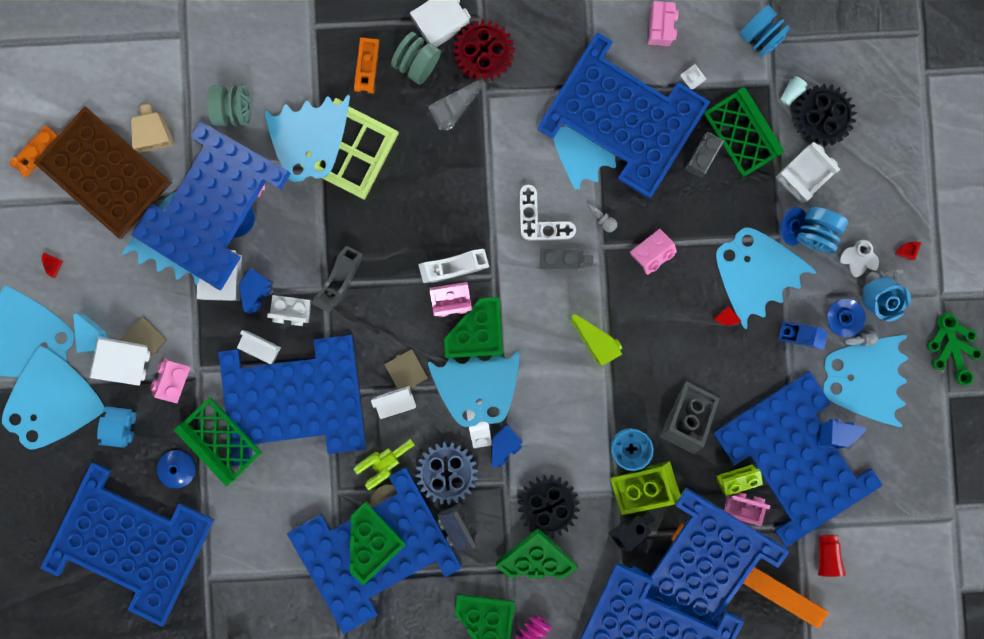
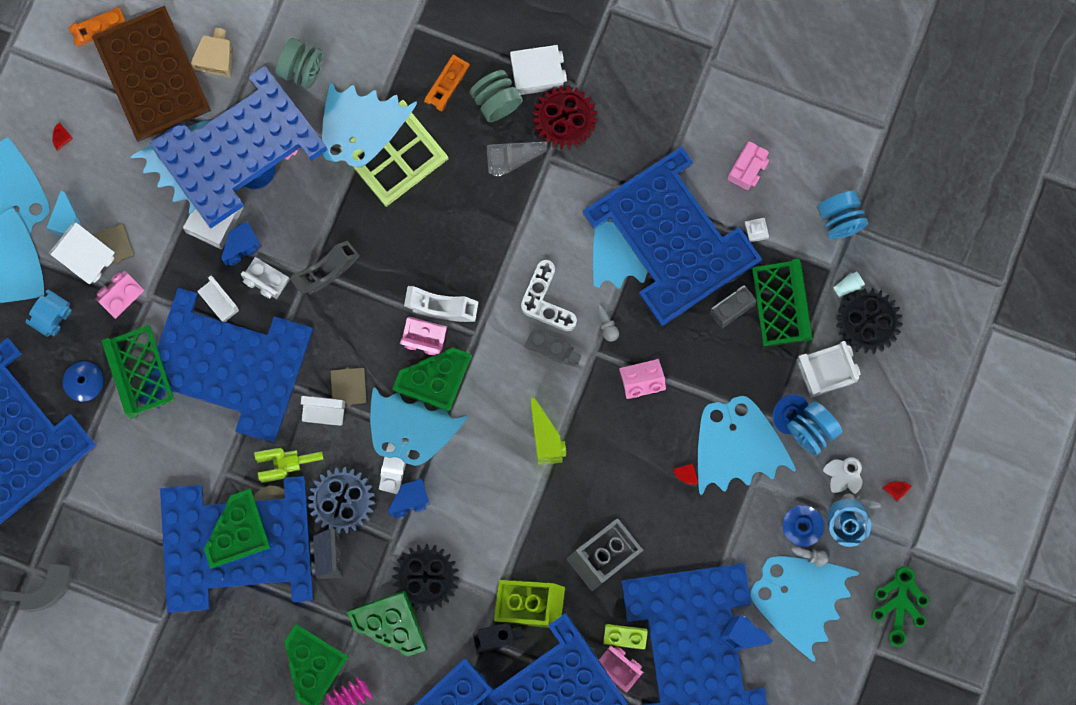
camera: 30 degrees right, 10 degrees down
(638, 458) = (527, 545): dark azure wheel -> none
(803, 335) = (753, 524): blue slope -> none

